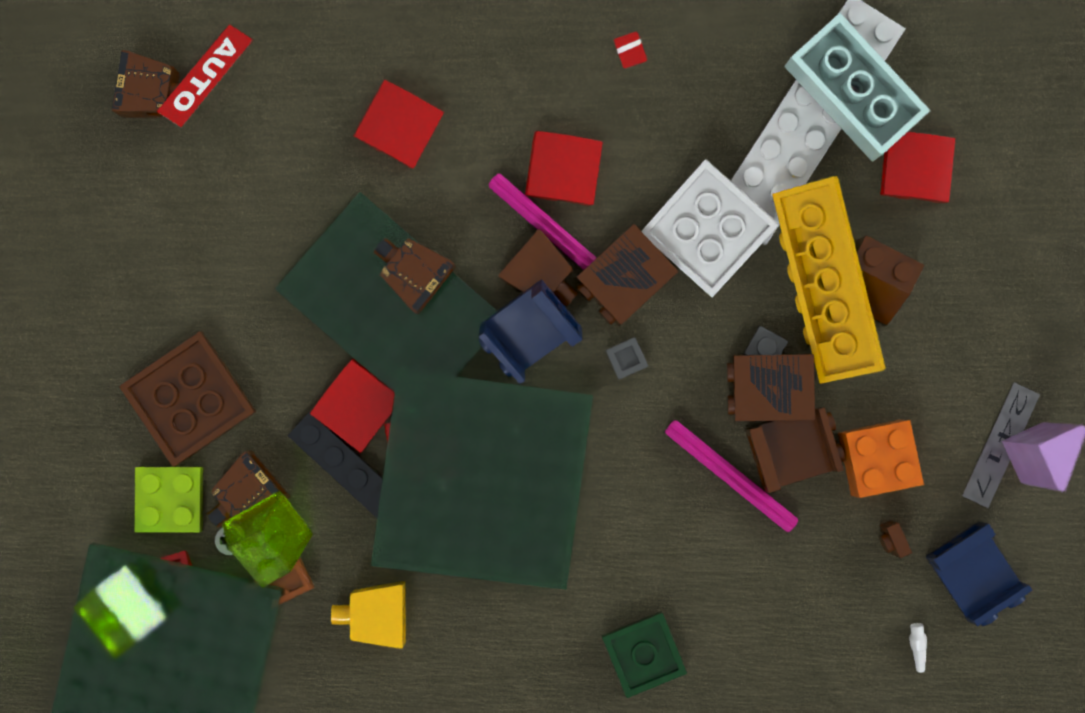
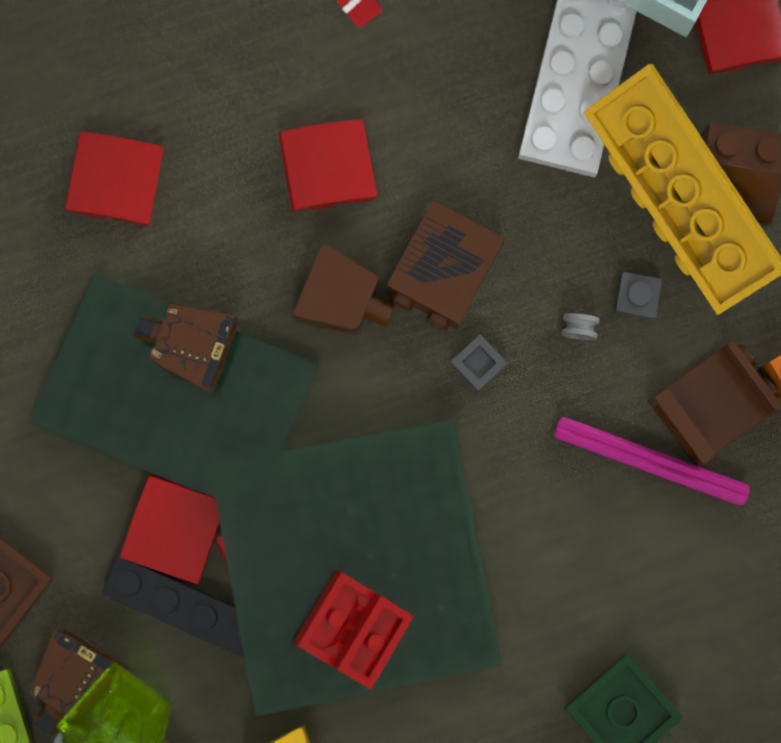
camera: 20 degrees left, 5 degrees down
(464, 526) = (353, 629): none -> red slope
(528, 330) = (350, 367): dark blue panel -> none
(541, 221) = (318, 233): dark pink axle -> none
(709, 228) = (523, 176): white plate -> none
(712, 356) = (580, 326): none -> light grey bush
(772, 387) = (663, 338): reddish brown panel -> none

